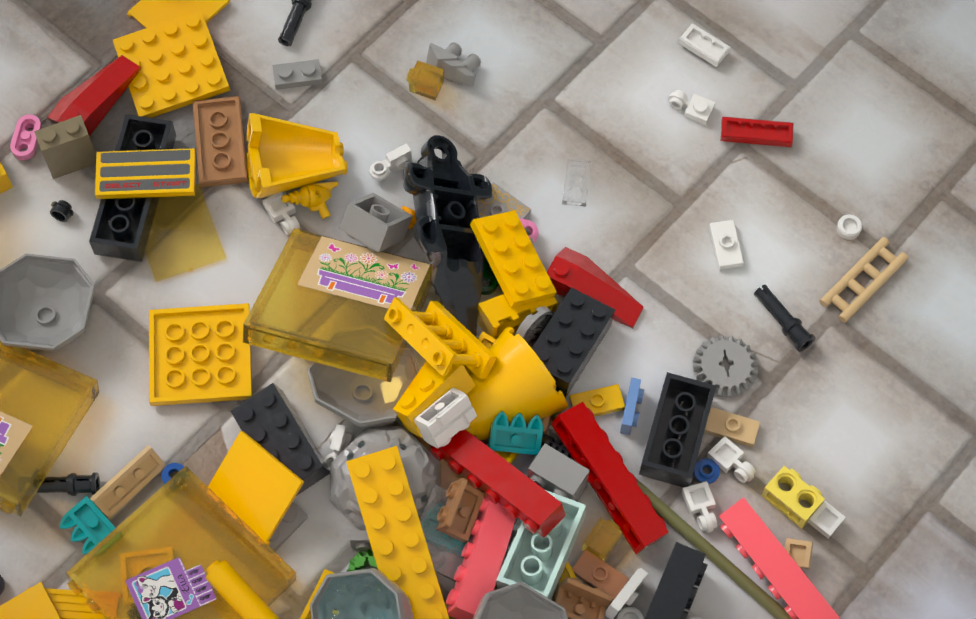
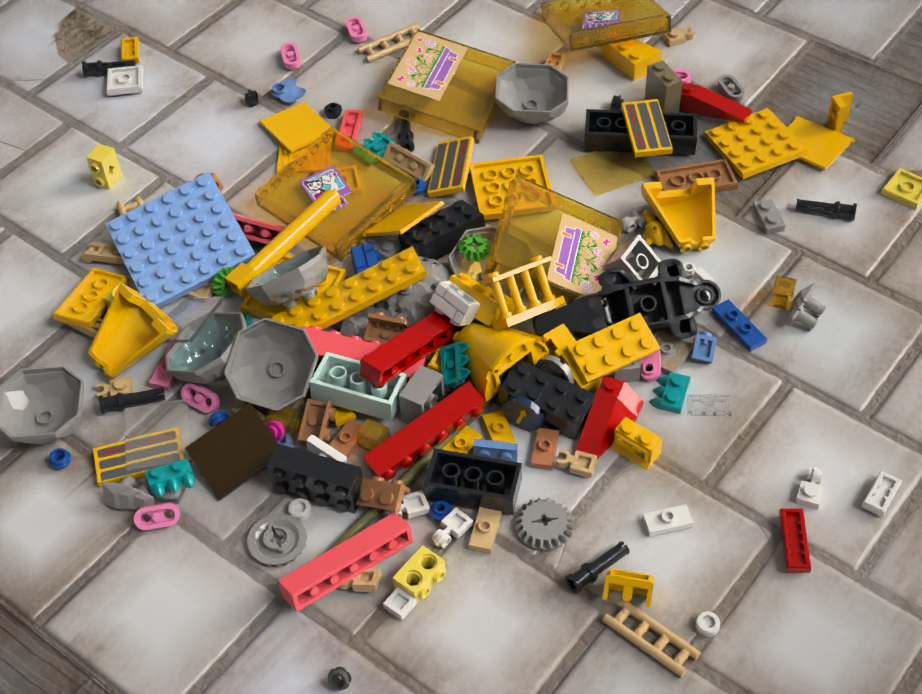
camera: 90 degrees right, 15 degrees down
(39, 560) = (351, 123): none -> coral plate
(63, 73) = (731, 88): none -> light grey plate
(142, 423) = (451, 167): none -> tile
(318, 542) = (364, 257): none -> blue brick
(339, 395) = (467, 250): none -> bright green gear
(470, 131) = (739, 325): none -> blue plate
(499, 172) = (703, 347): none -> medium blue bracket
(555, 216) = (671, 393): none -> teal plate
(591, 363) = (522, 413): none -> dark blue tile
(625, 355) = (545, 449): none -> nougat plate
(627, 448) = (463, 441): none -> yellow plate
(630, 259) = (636, 443): none -> yellow window
(650, 320) = (580, 463): none -> tan plate
(693, 525) = (382, 495): none -> medium nougat bracket
(812, 287) = (629, 584): none -> yellow window
(917, 585) = (336, 683): none -> dark grey plate

